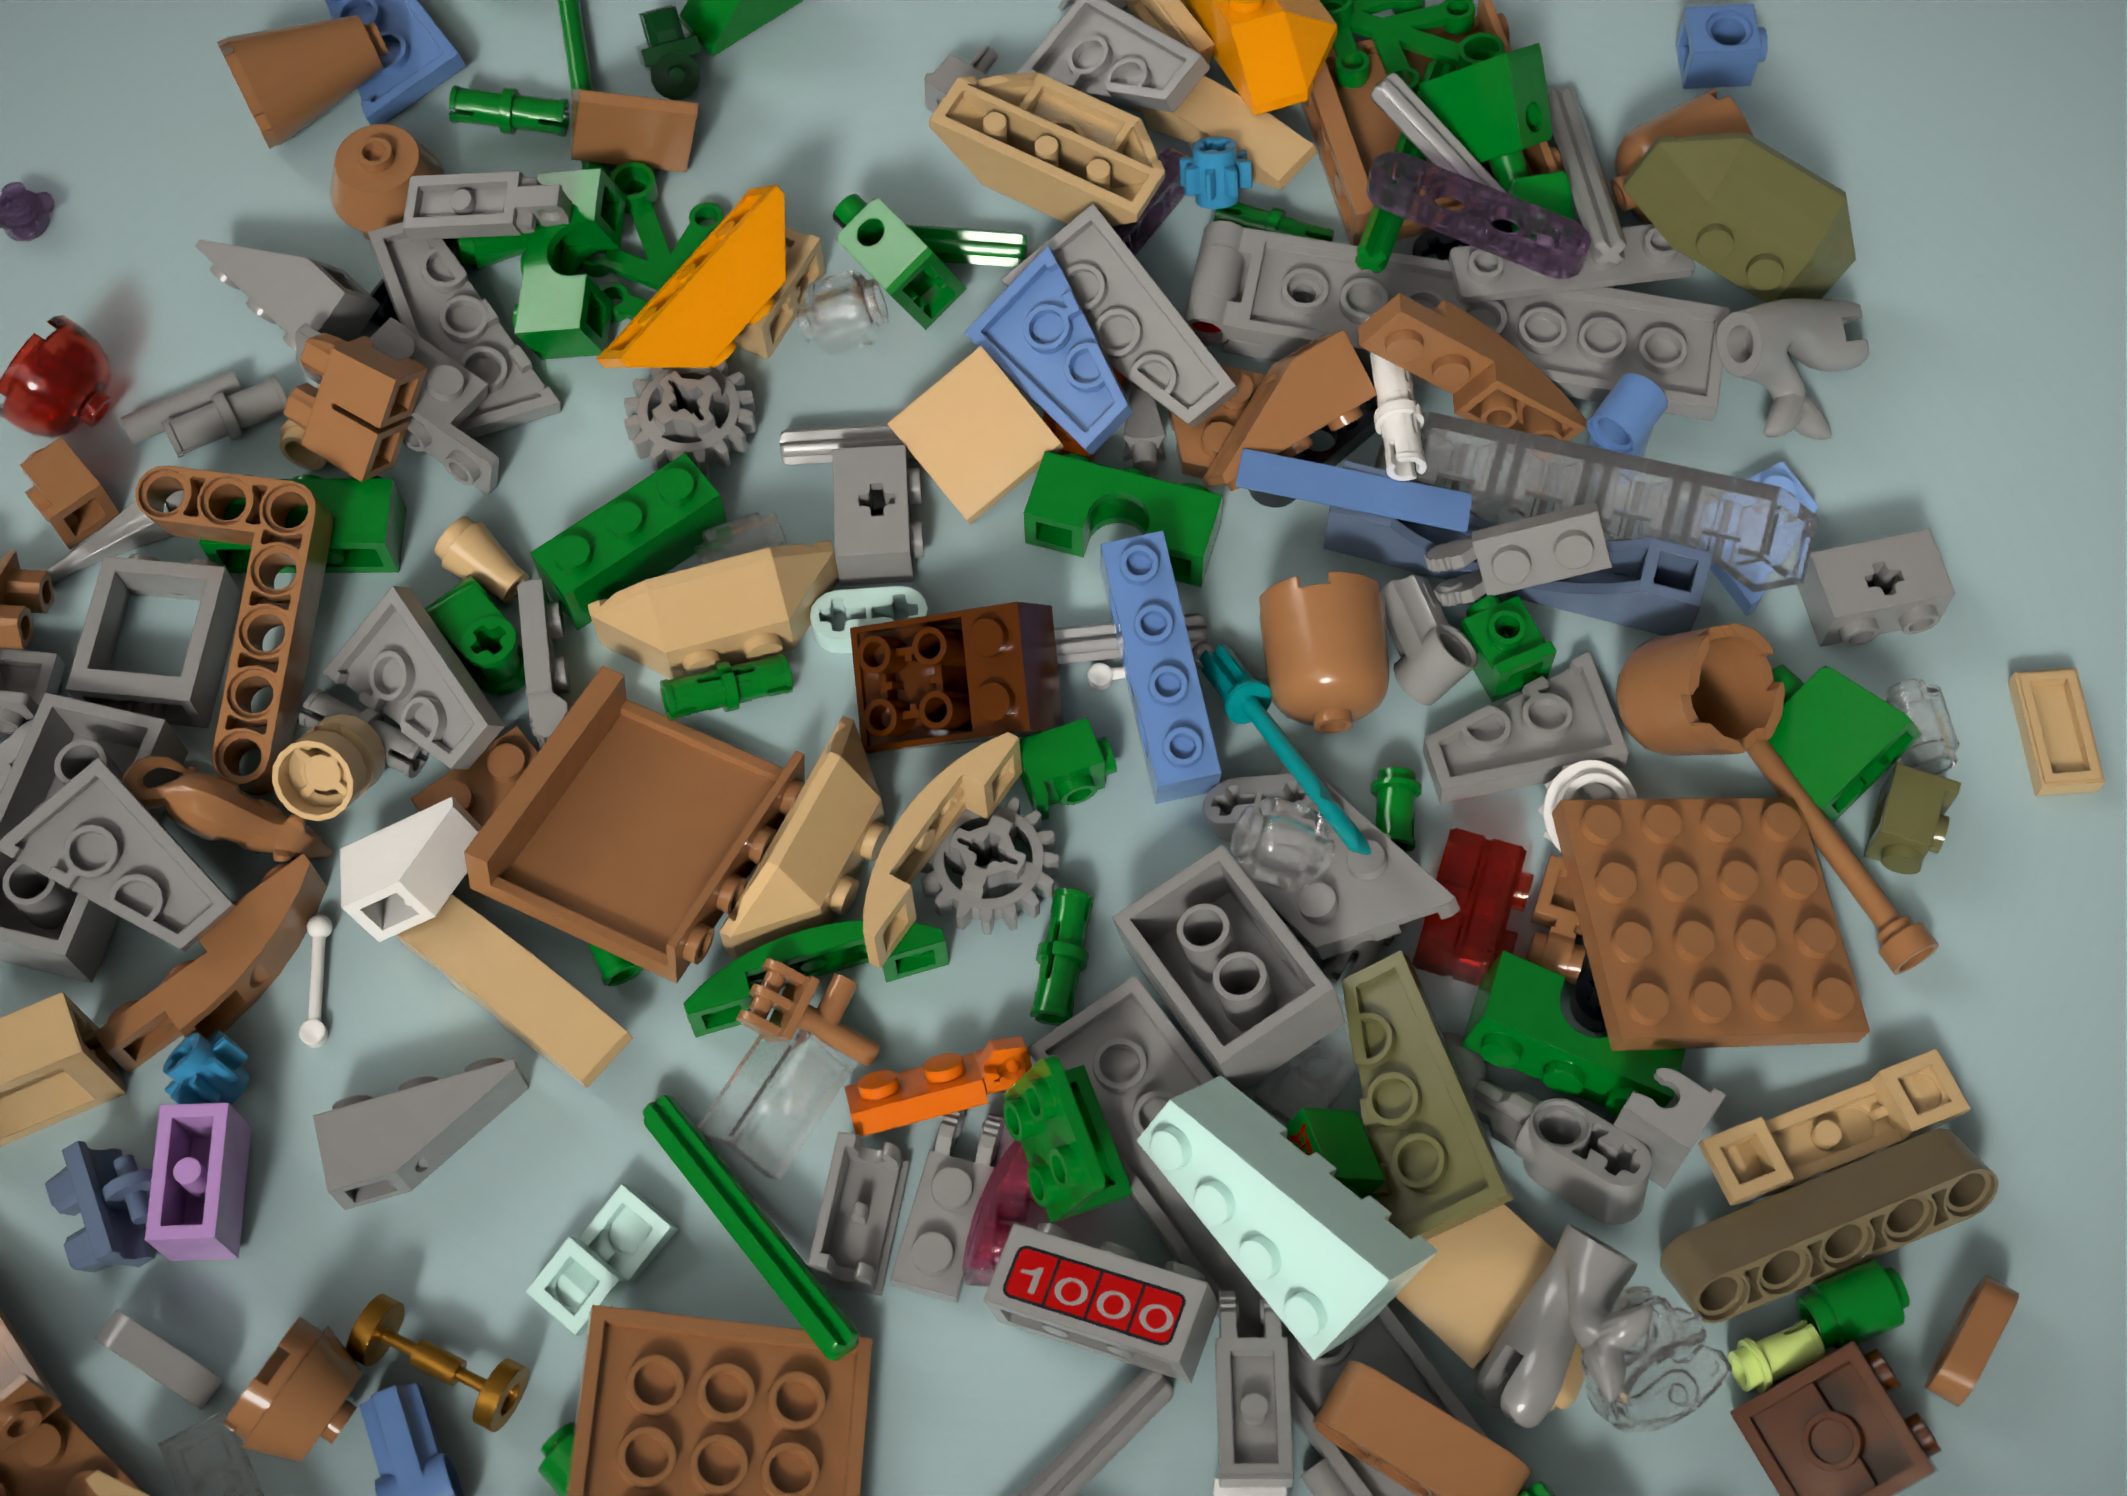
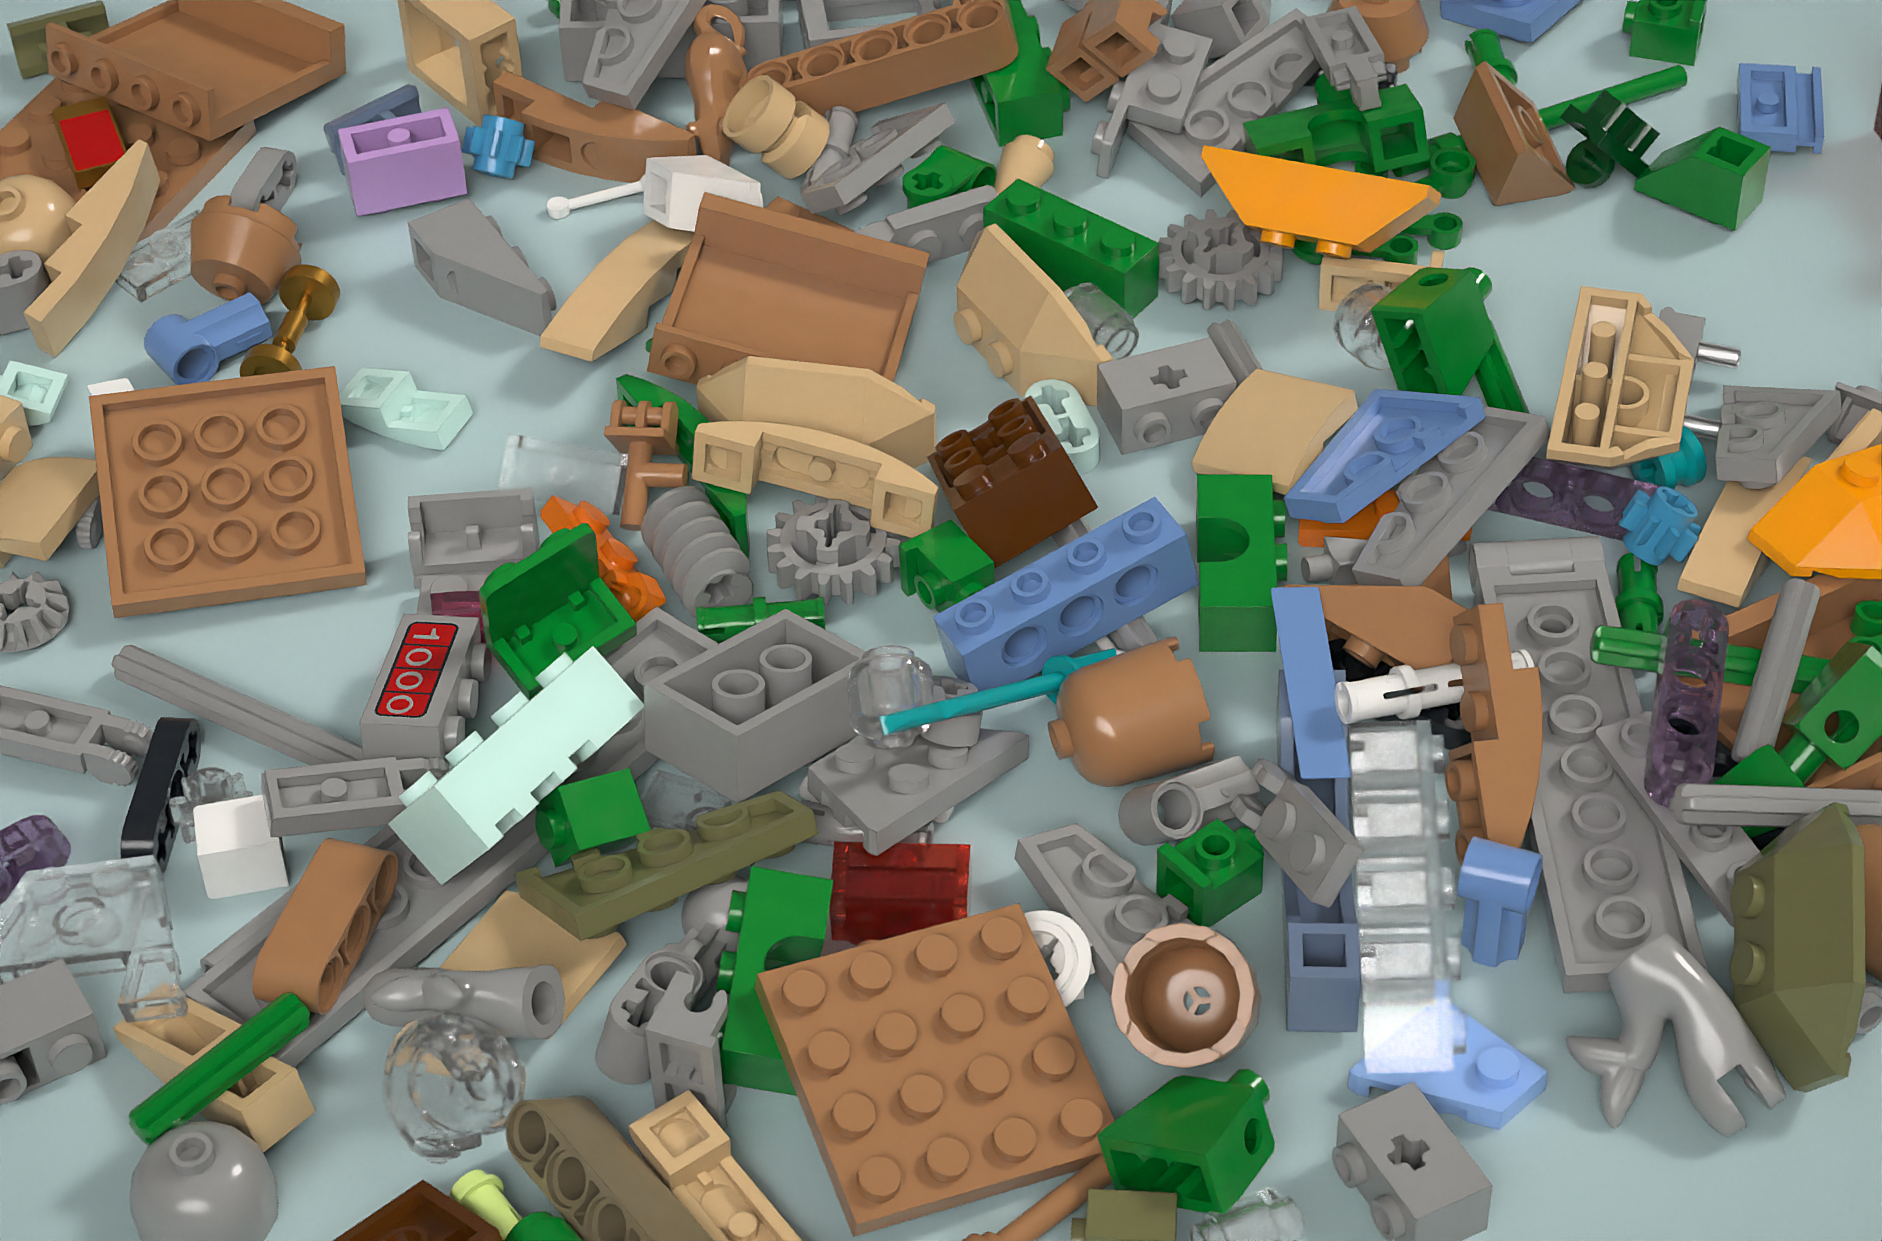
camera: 75 degrees right, 20 degrees down
(726, 686) = (951, 346): green pin -> none
(751, 1228) = (440, 471): green axle -> none
(958, 993) = (696, 550): none -> light grey piece
(1395, 804) = (995, 823): green pin -> none

